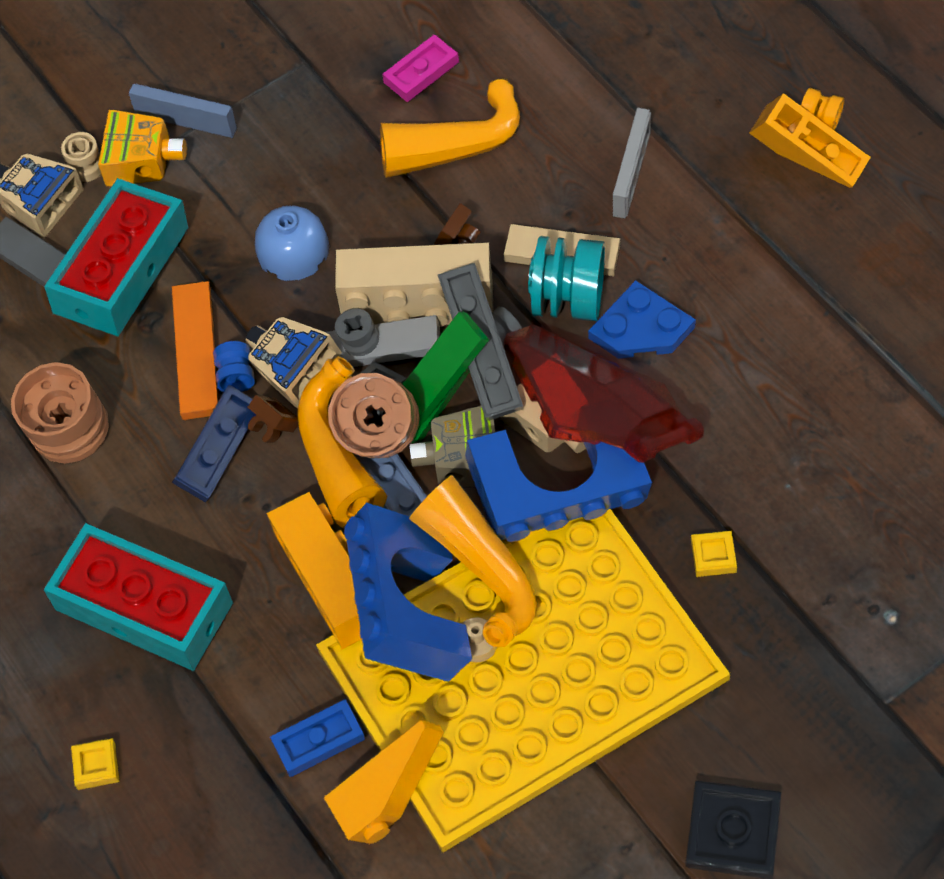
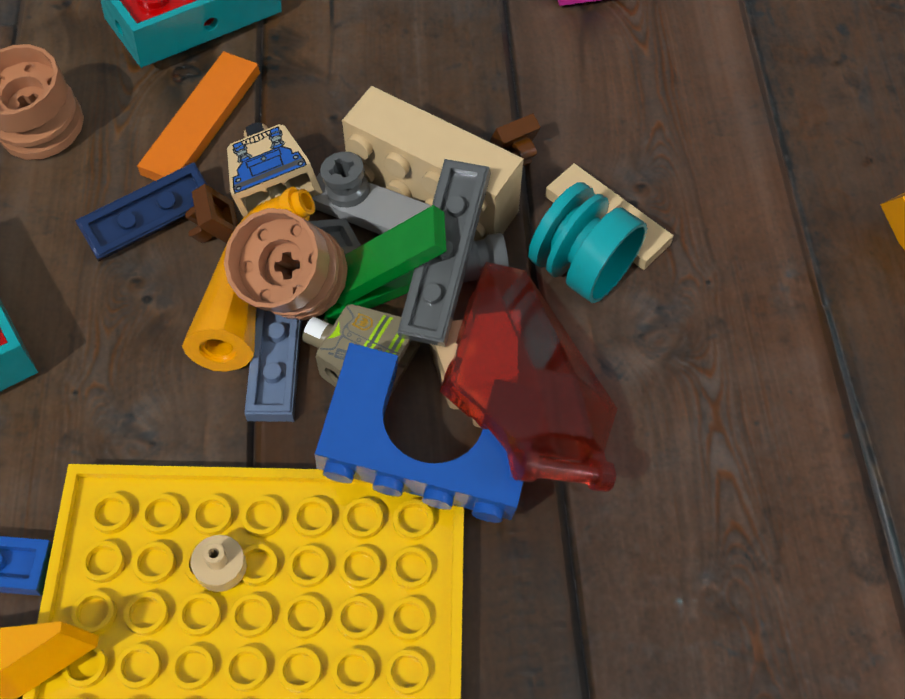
camera: 25 degrees right, 0 degrees up
(233, 366) = (211, 153): blue wheel -> none
(291, 242) = (353, 64): medium blue cylinder -> none
(320, 562) = (132, 397): light orange brick -> none
(390, 624) = (117, 496): blue arch -> none
(427, 145) = (546, 49): light orange animal -> none
(463, 530) = (284, 442): light orange animal -> none
(631, 163) = (735, 169): light grey tile -> none
(640, 324) = (637, 333): blue plate -> none
(713, 553) = (544, 627): yellow tile -> none

